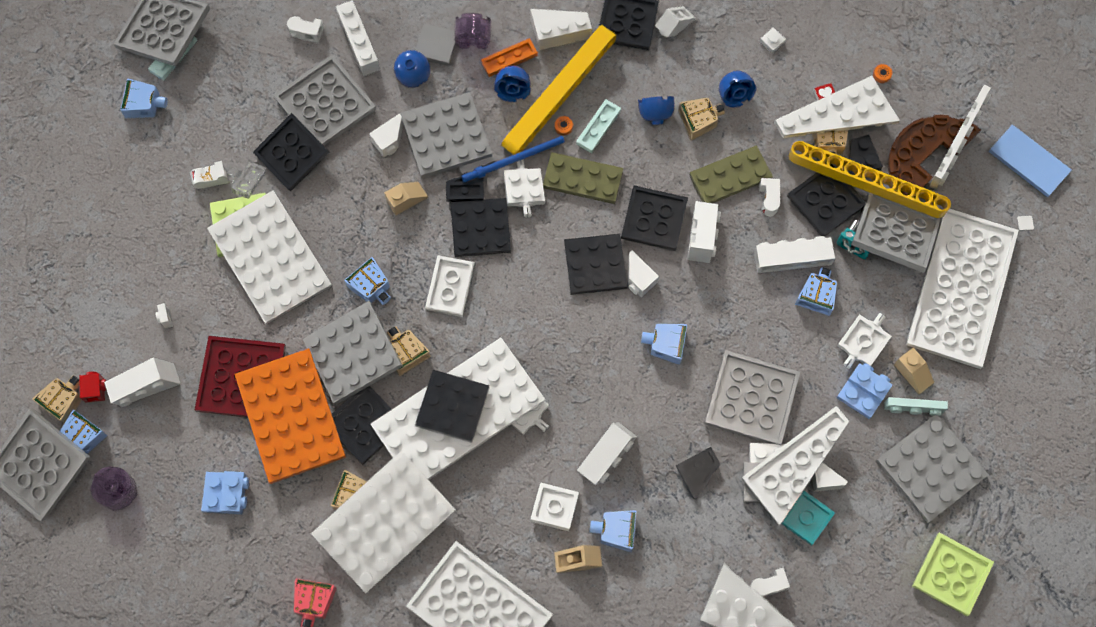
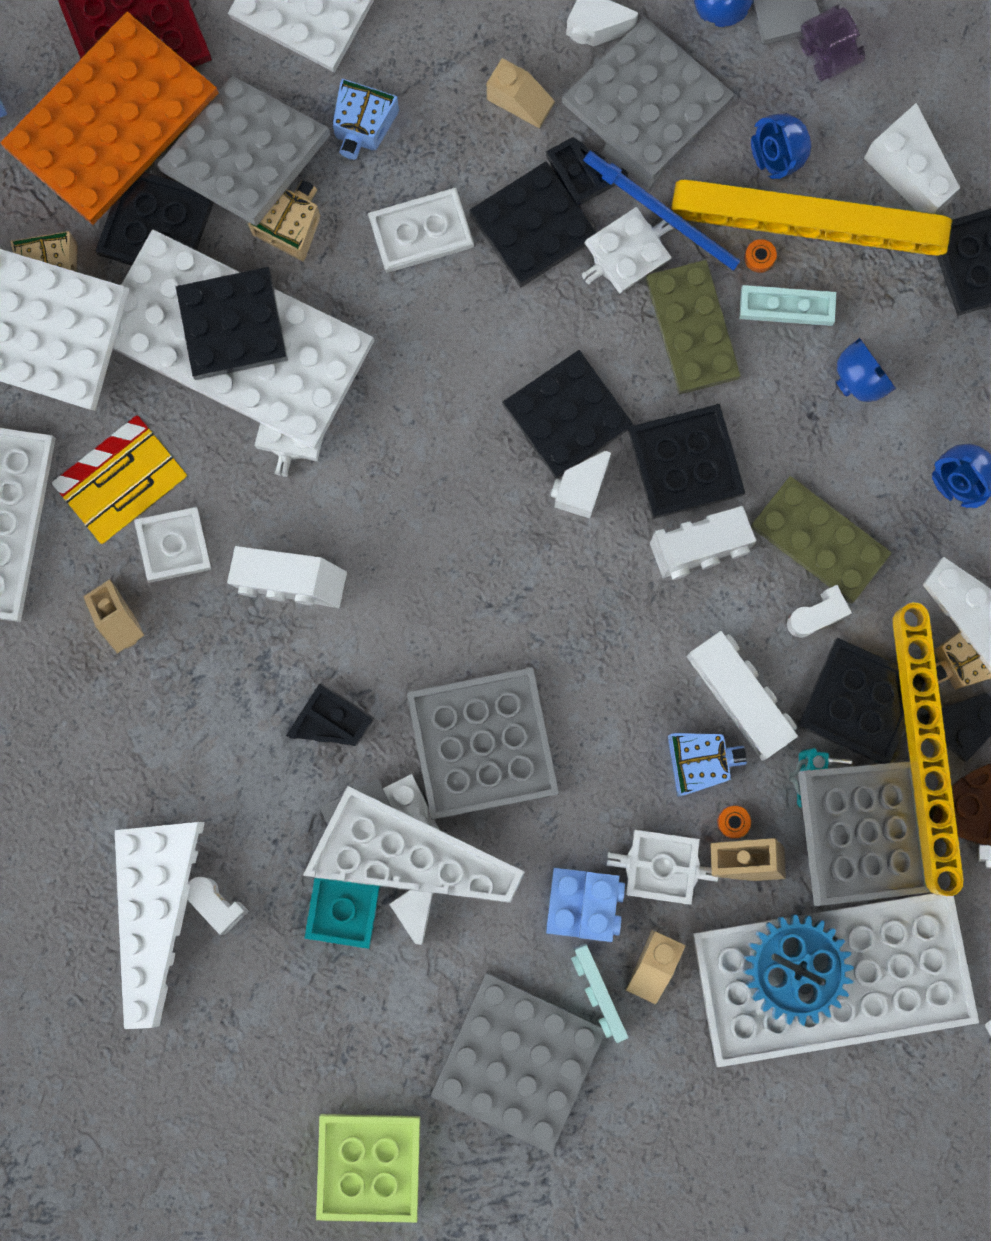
camera: 65 degrees right, 10 degrees up
(499, 519) = (119, 479): none -> yellow sticker
(509, 57) = (824, 120): orange plate -> none
(616, 529) = (182, 647): light blue torso -> none
(667, 341) = (501, 576): light blue torso -> none
(699, 116) = (890, 445): tan torso -> none
(857, 294) = (734, 822): none -> orange tile
(882, 295) = (748, 860): none -> tan slope
(963, 313) = (785, 996): none -> dark azure gear

